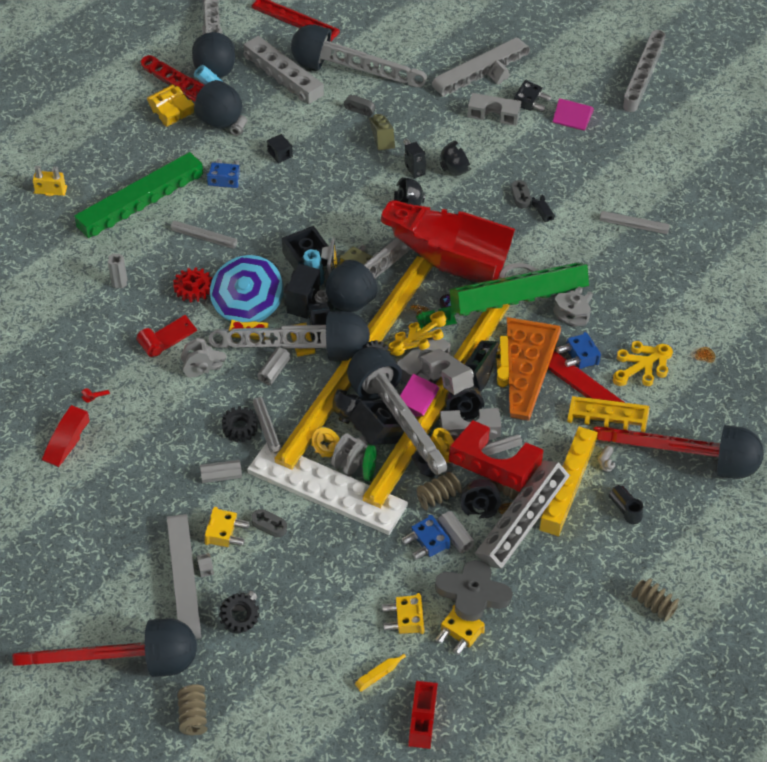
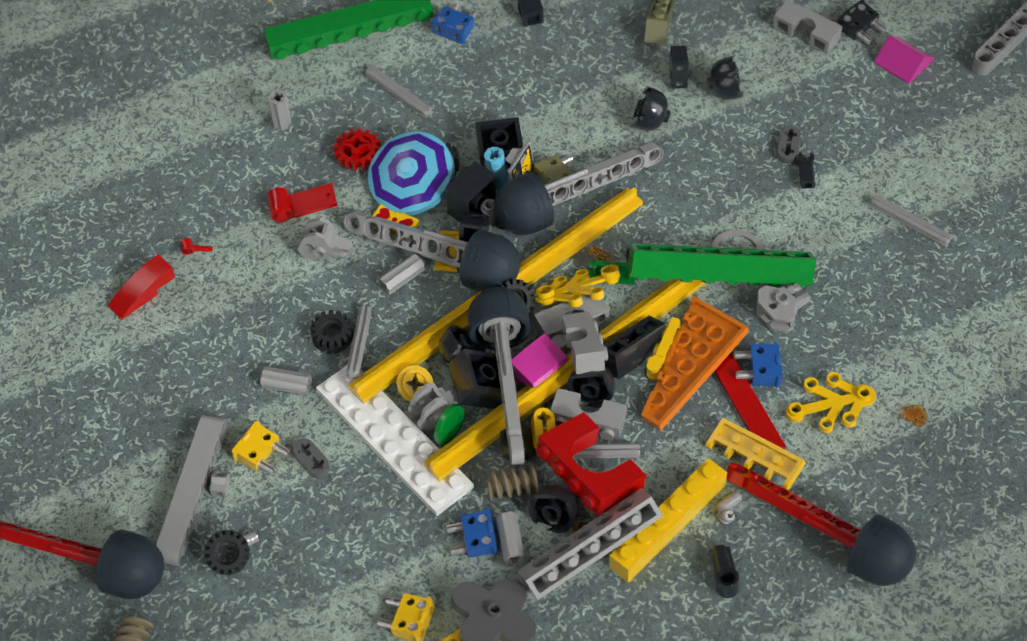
camera: 25 degrees right, 5 degrees up
(451, 241) = (667, 184): red windscreen -> none

